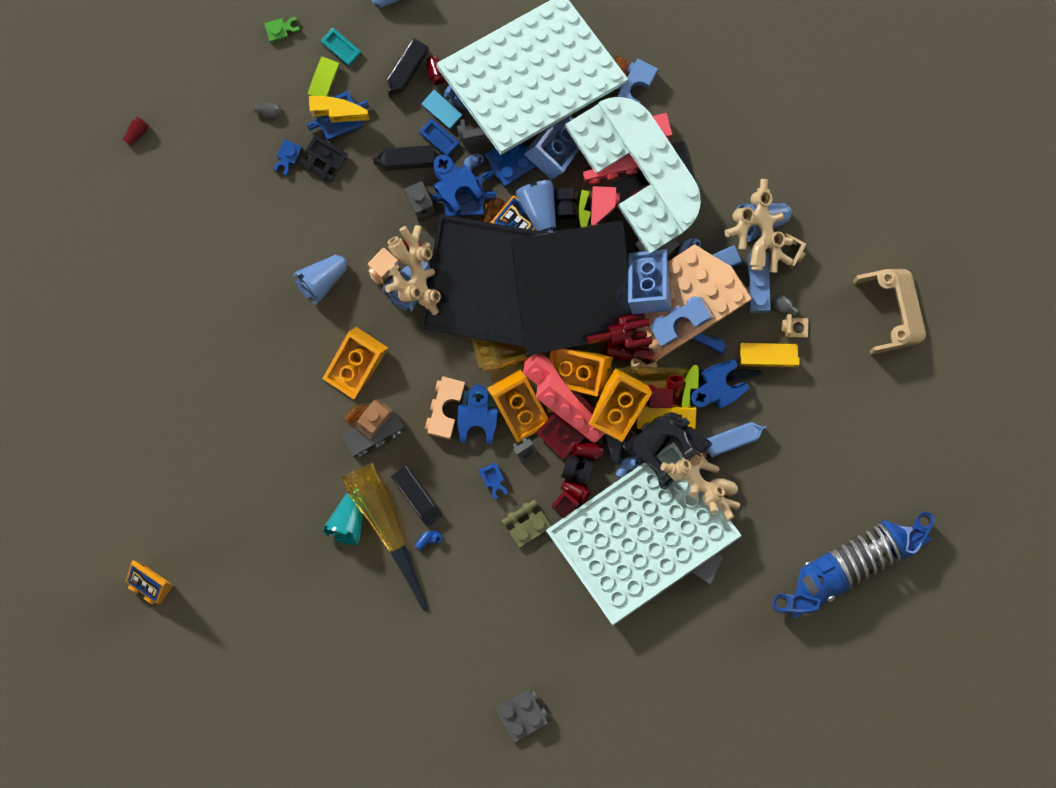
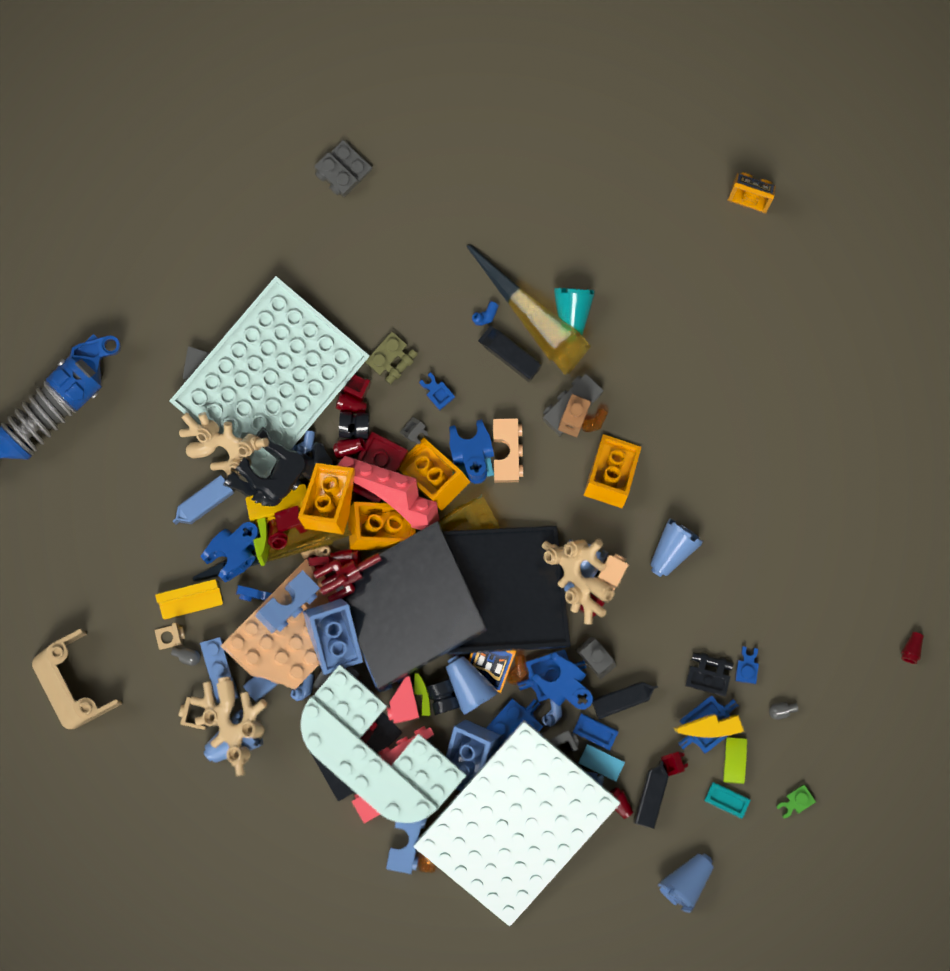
camera: 165 degrees right, 0 degrees up
(378, 90) = (673, 763): none -> dark red tile

